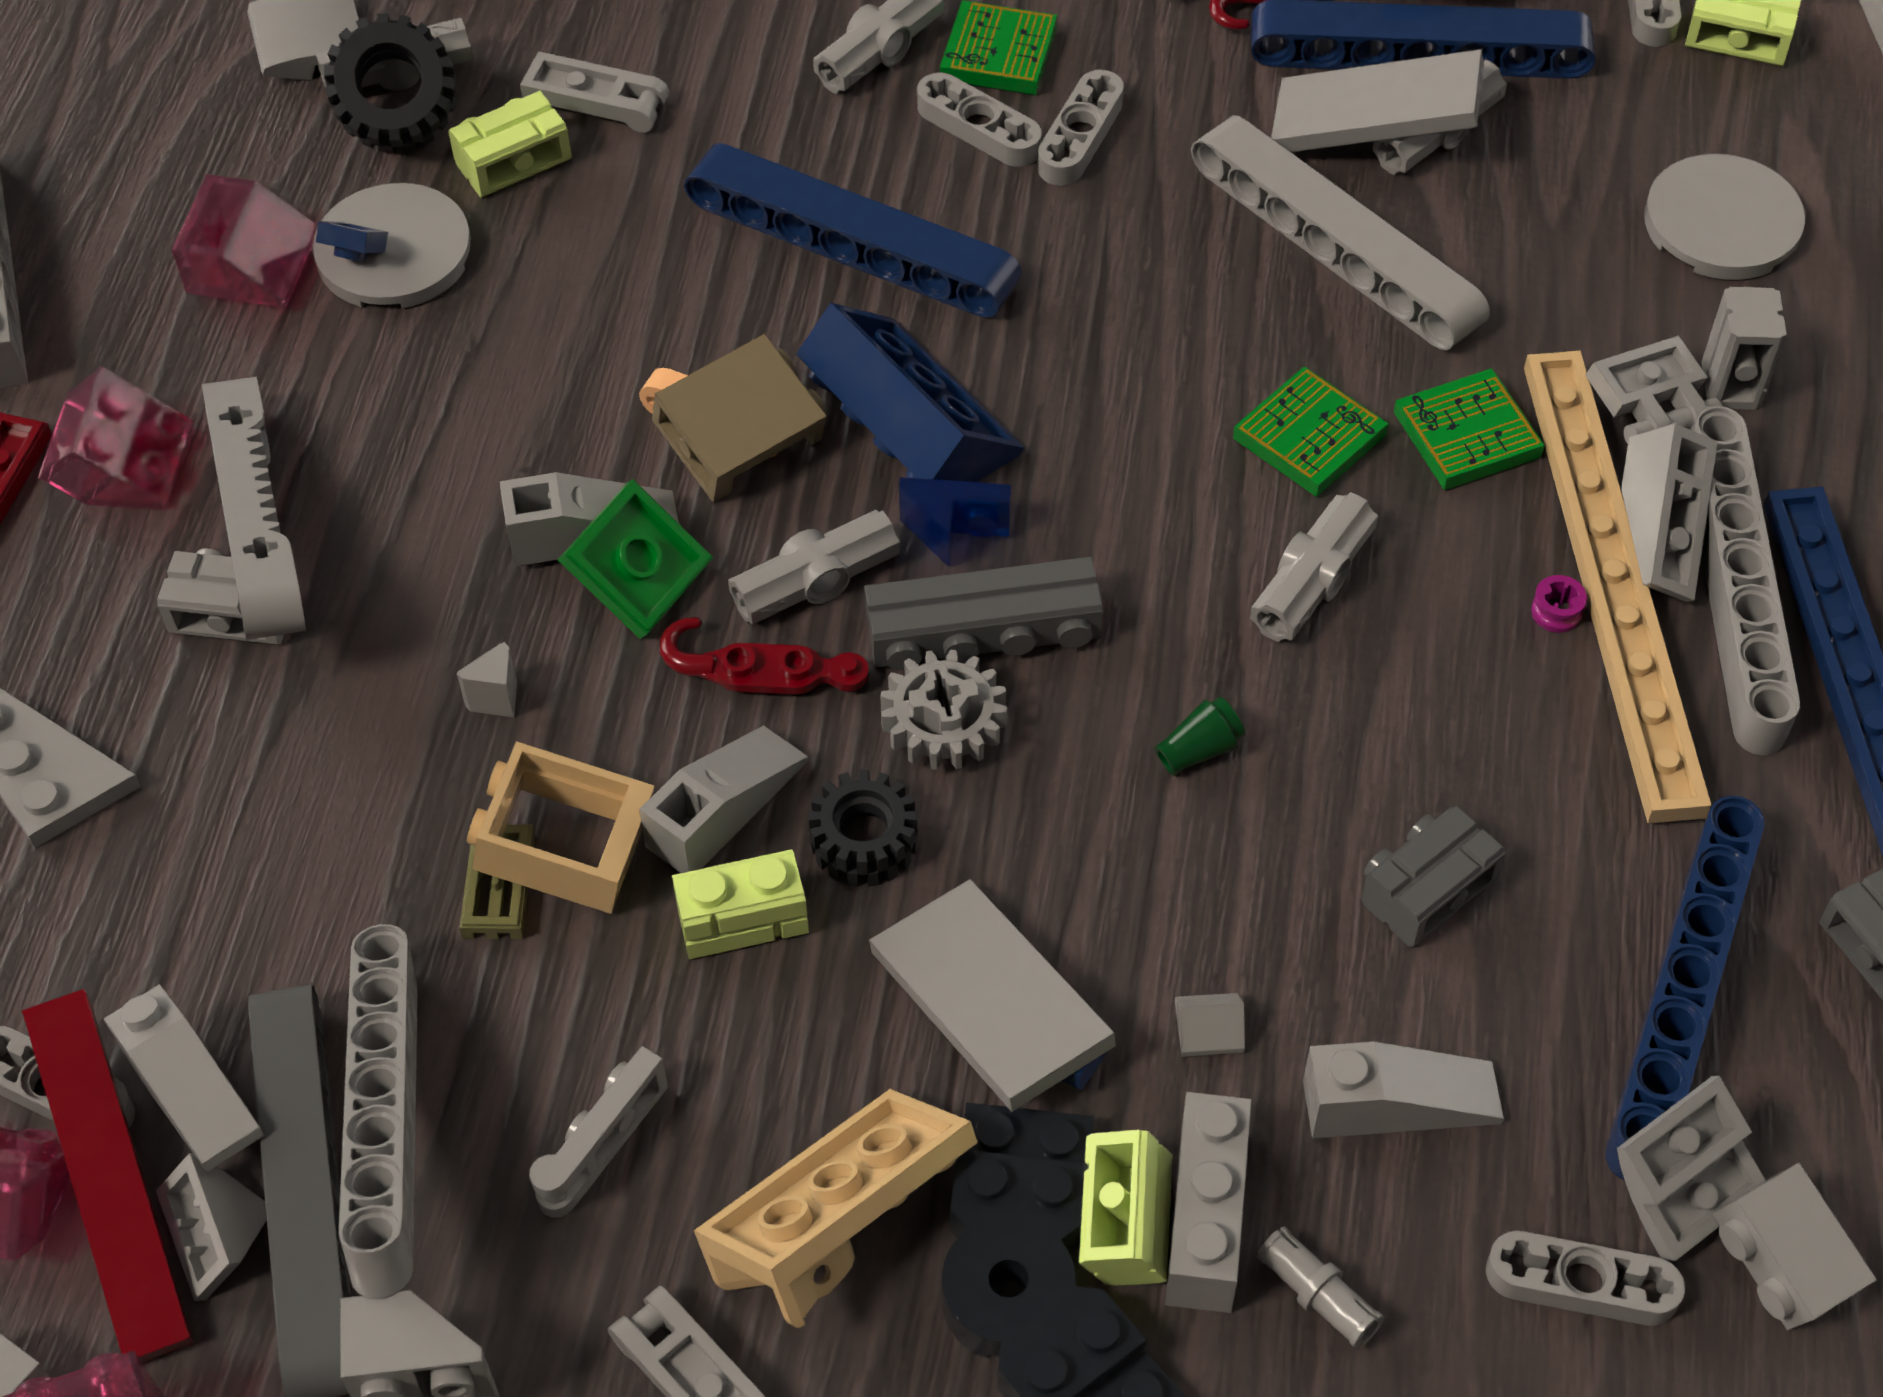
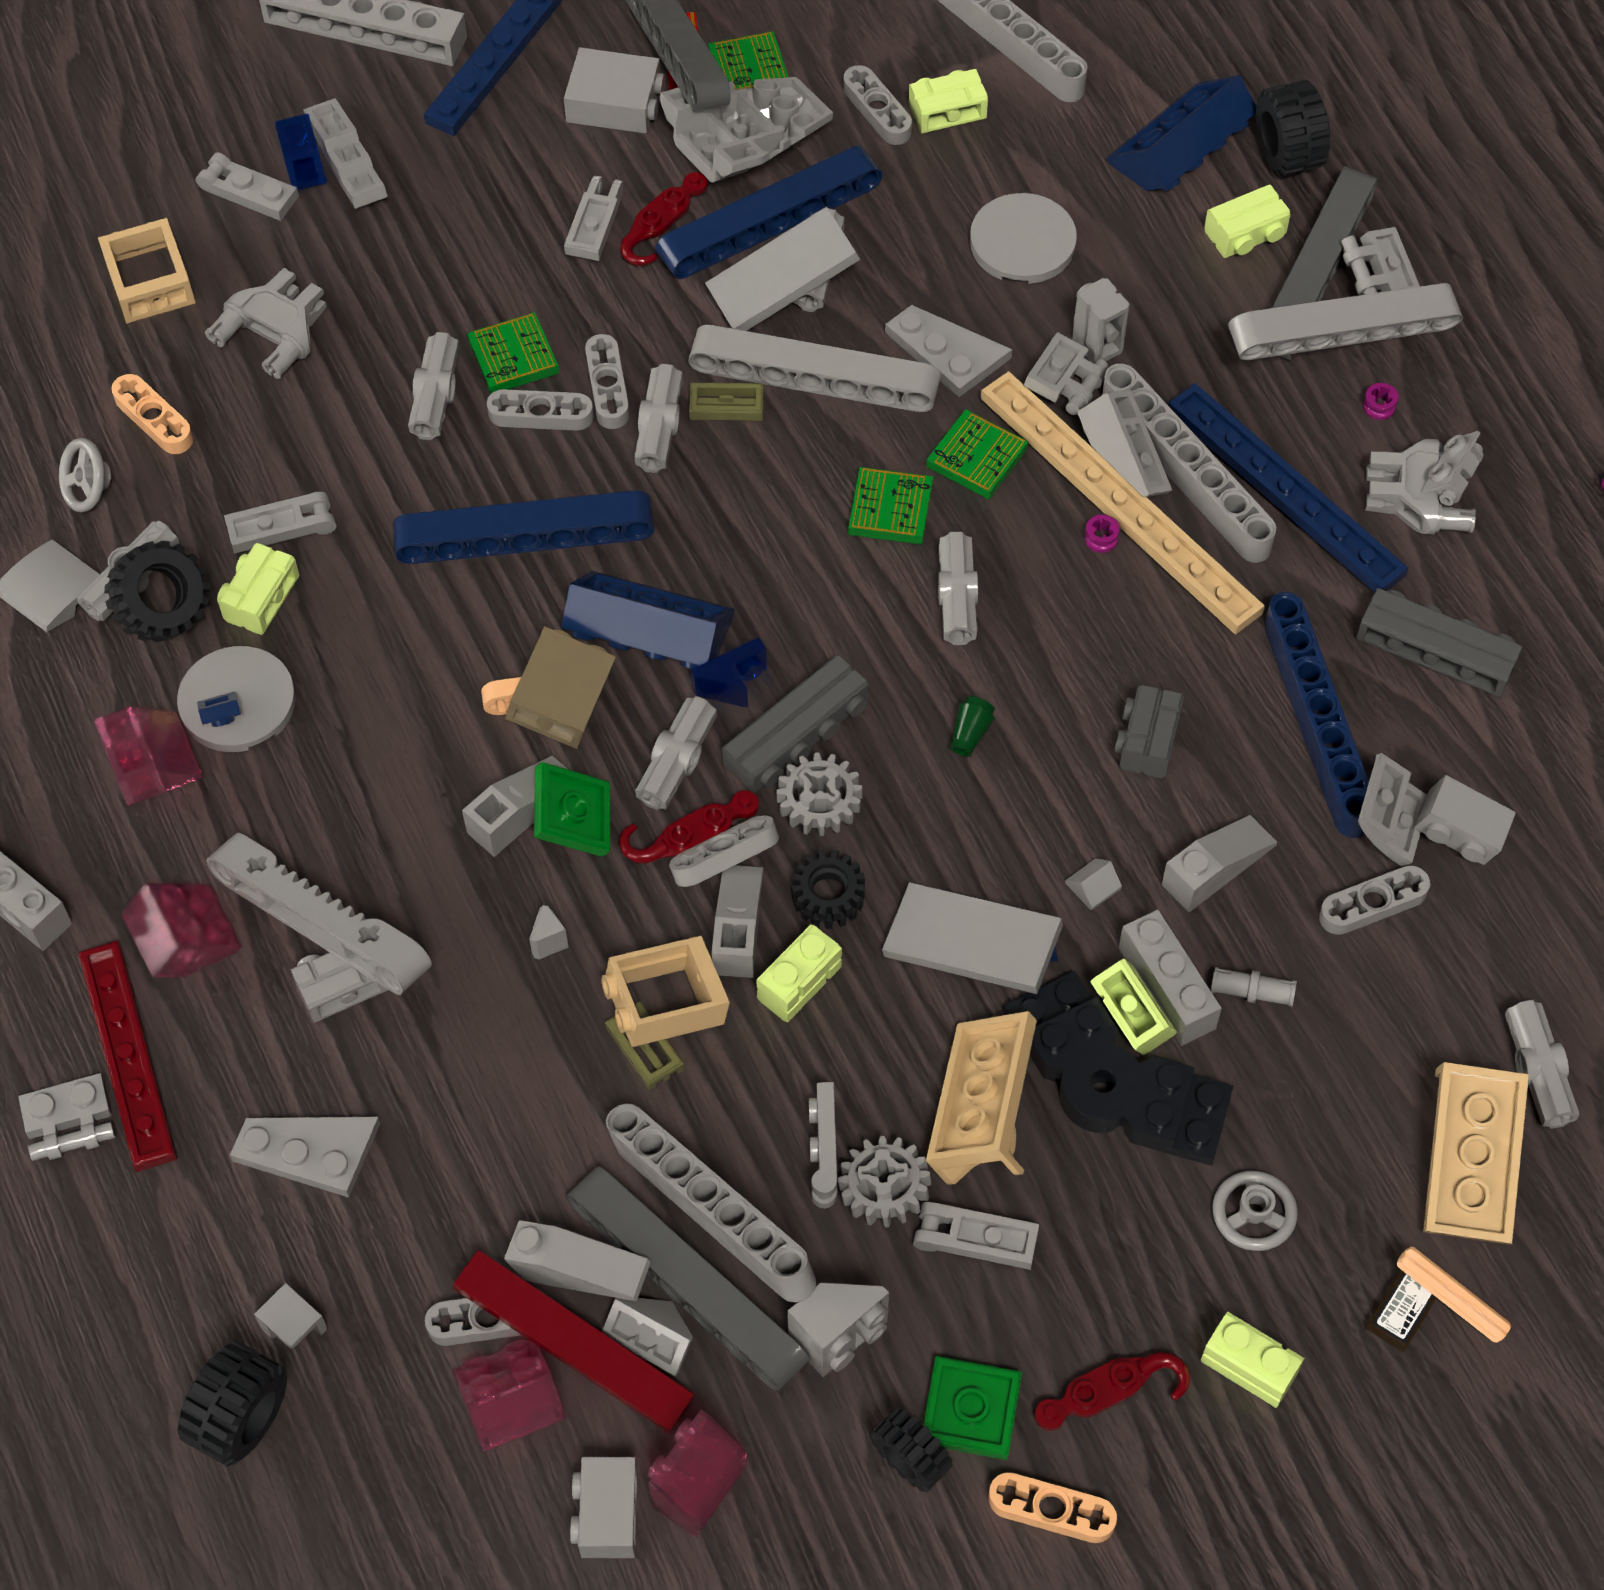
camera: 35 degrees left, 5 degrees up
(631, 1226) = (904, 1184): none -> light grey gear
(775, 709) = (724, 851): none -> light grey beam
(1104, 192) = (658, 418): none -> light grey piece
(1199, 222) = (726, 406): none -> olive tile
(1526, 293) = (956, 352): none -> light grey wing

